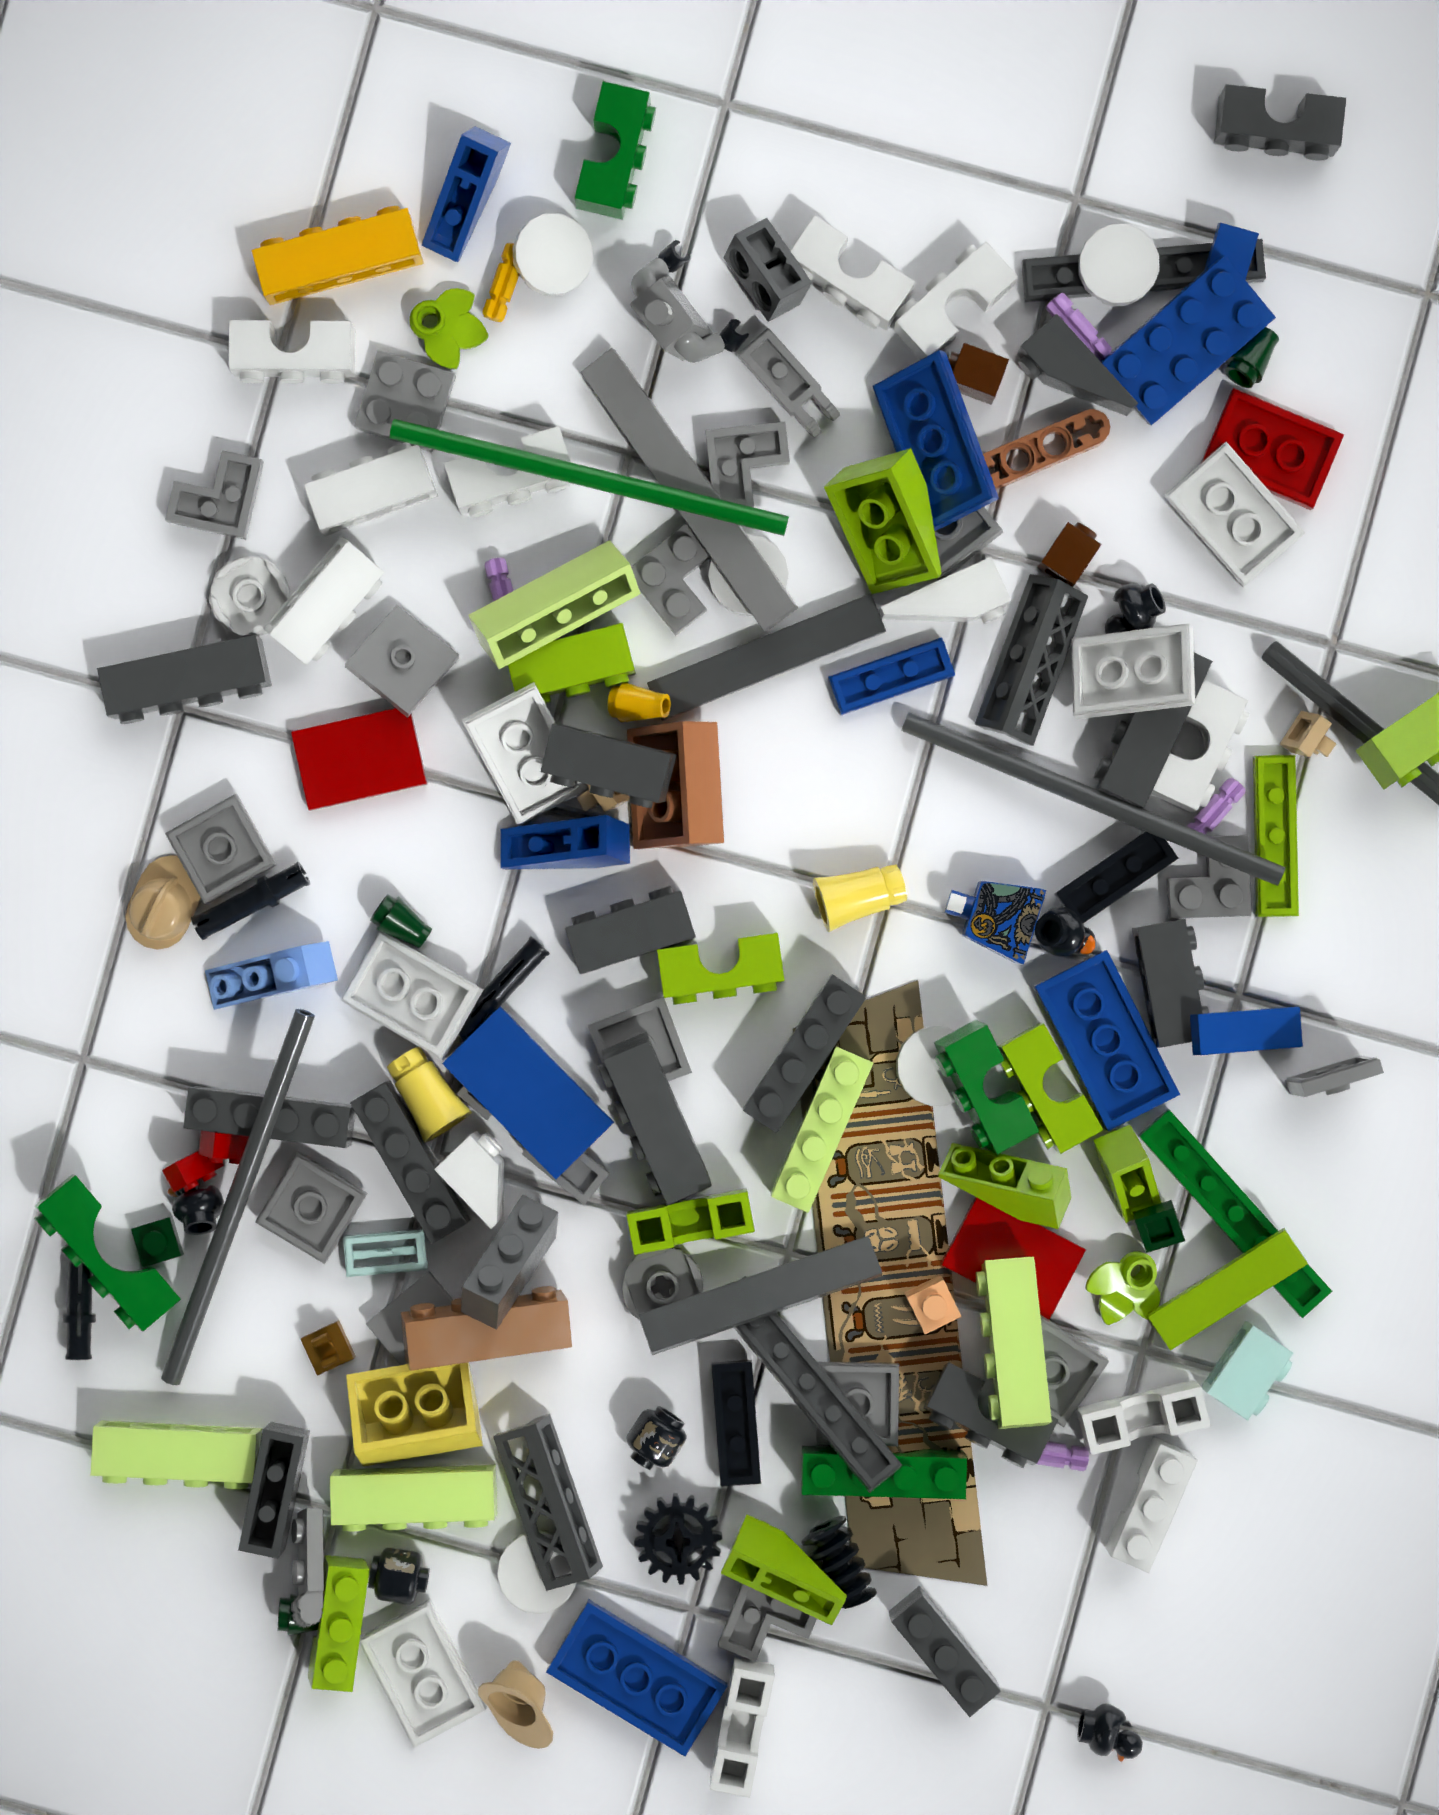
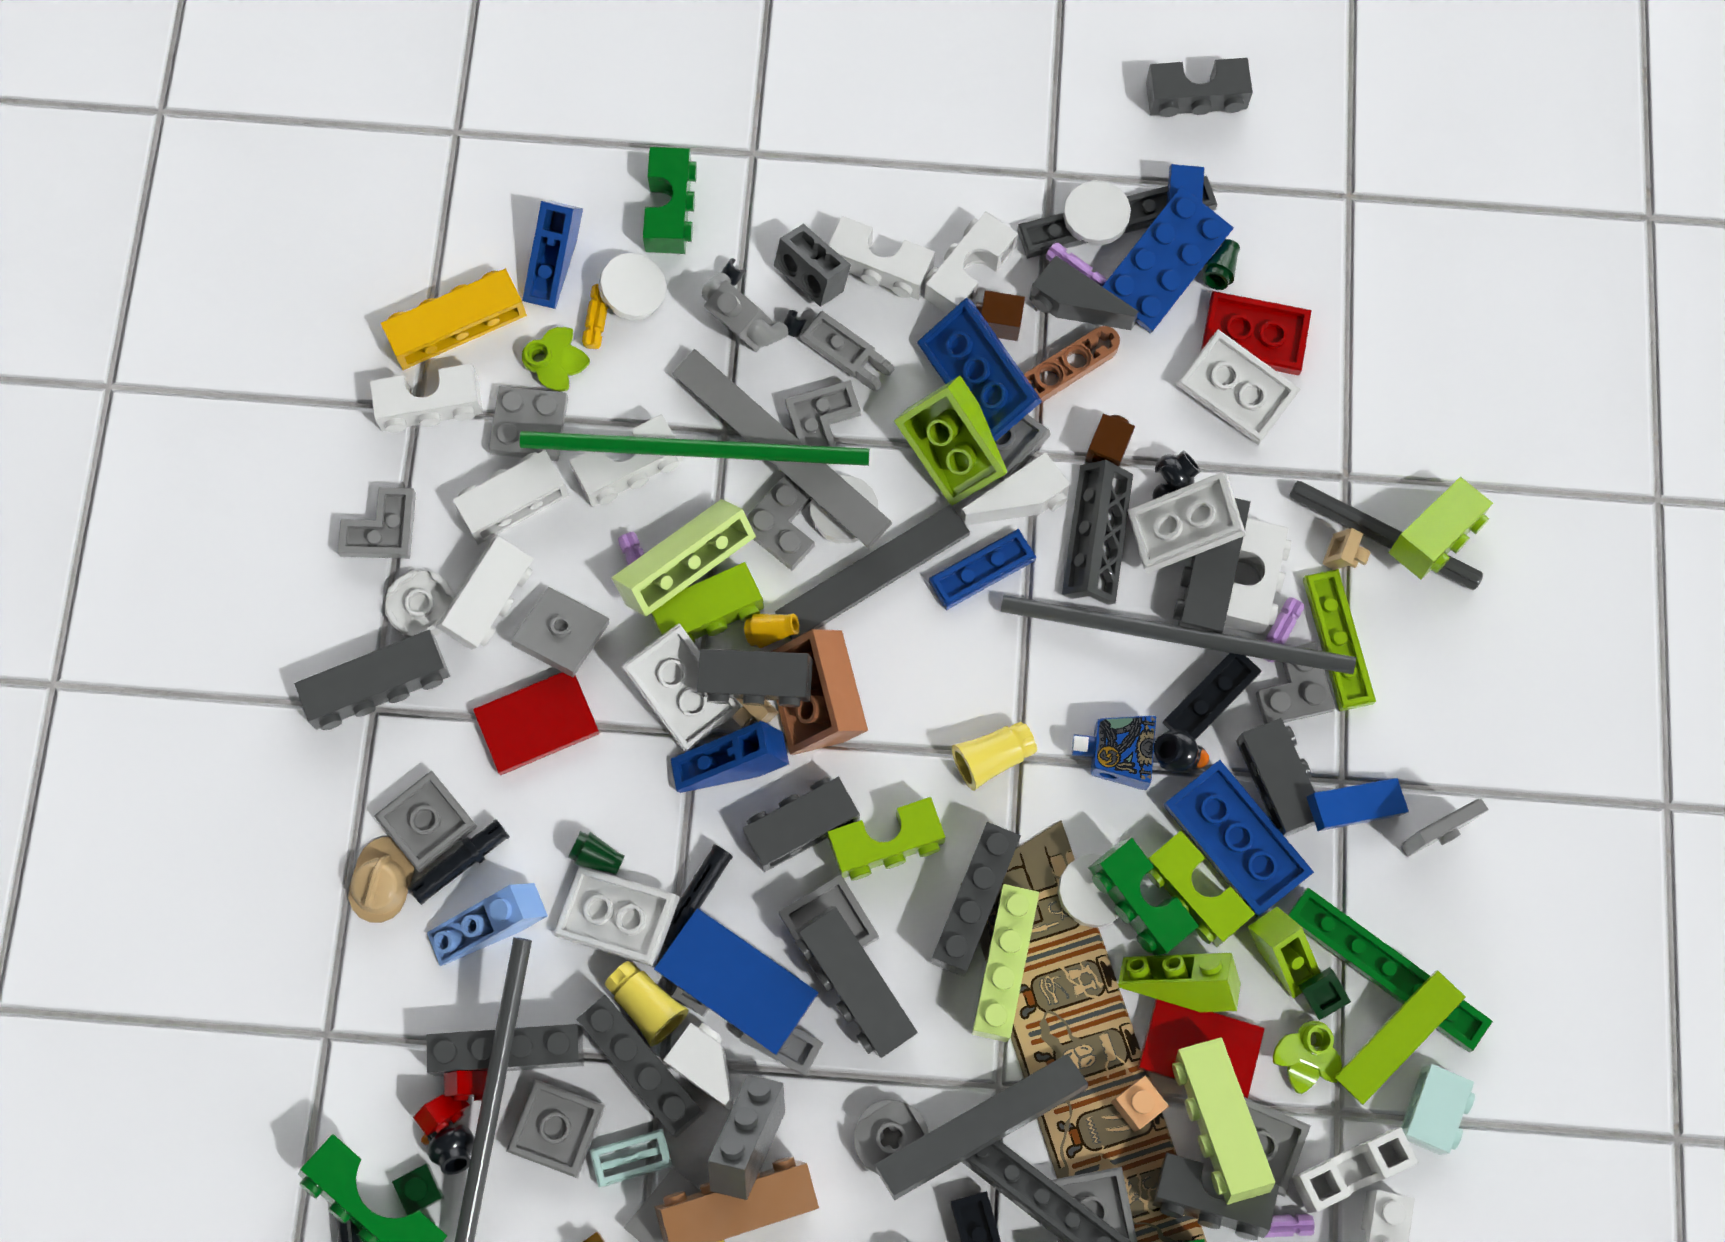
camera: 15 degrees left, 15 degrees down
(690, 1220) = (905, 1070): lime arch -> none

